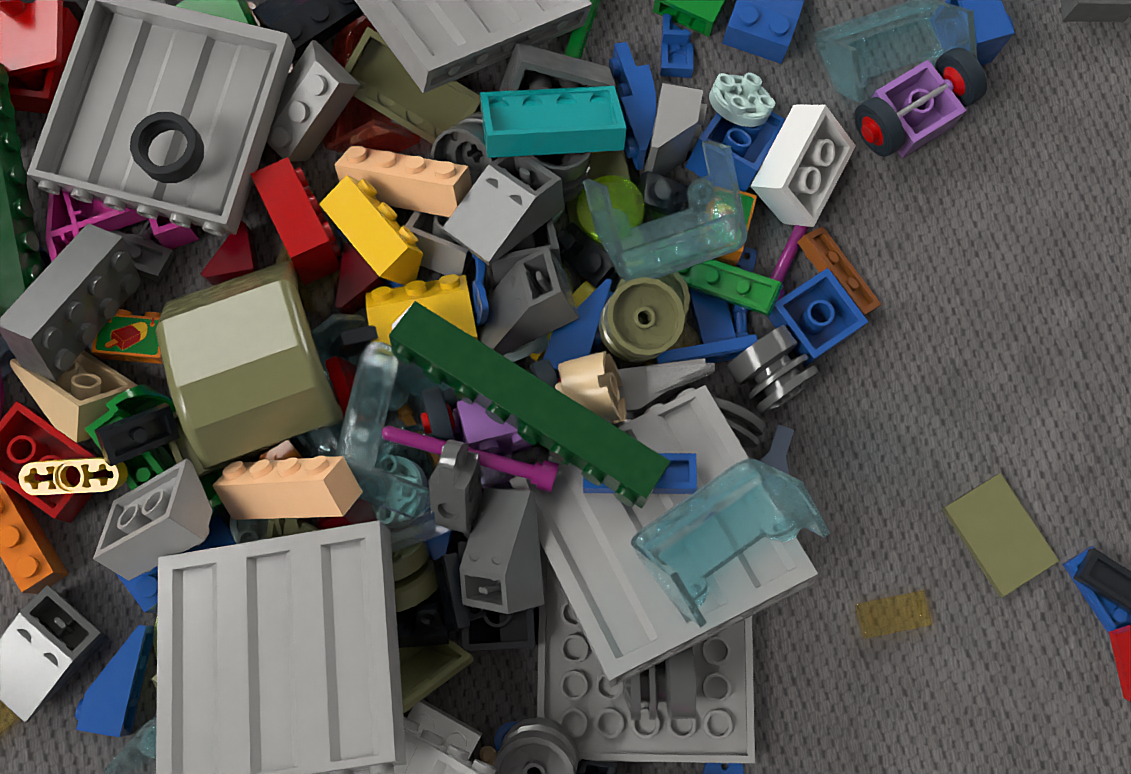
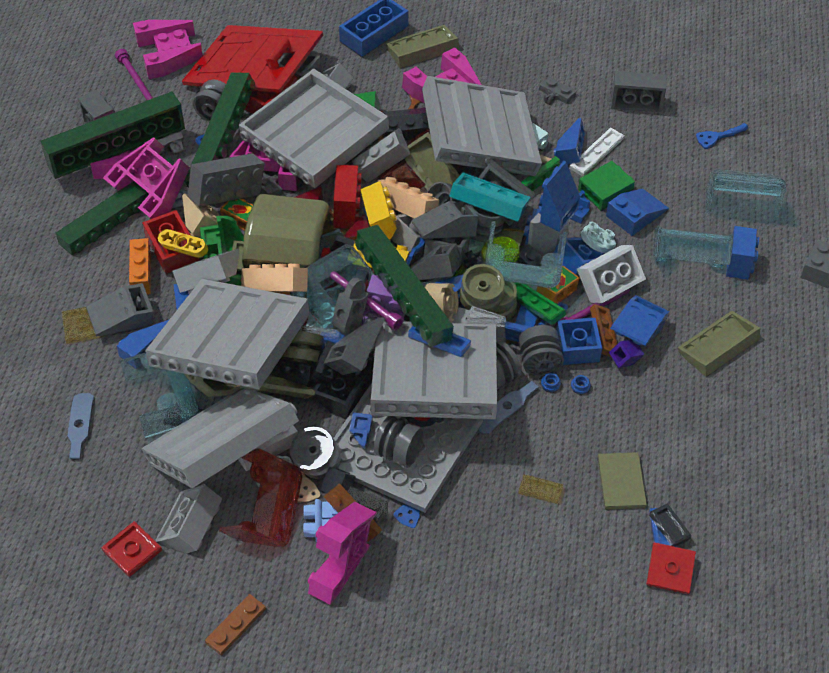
camera: 35 degrees right, 25 degrees down
(137, 434) = (222, 235): black hinge -> none
(159, 123) = (306, 146): black tyre -> none
(574, 668) = (361, 427): none -> blue slope
(692, 91) = (559, 198): none -> blue slope
(719, 525) = (461, 365): clear light blue windscreen -> none
(812, 402) = (550, 377): none -> blue plate
(861, 386) = (580, 379): none -> blue plate
(894, 236) = (640, 320): none -> blue slope
(899, 304) = (626, 353): none -> dark purple brick
(920, 103) = (689, 275): brick -> none
(1012, 205) = (719, 342): none -> olive slope

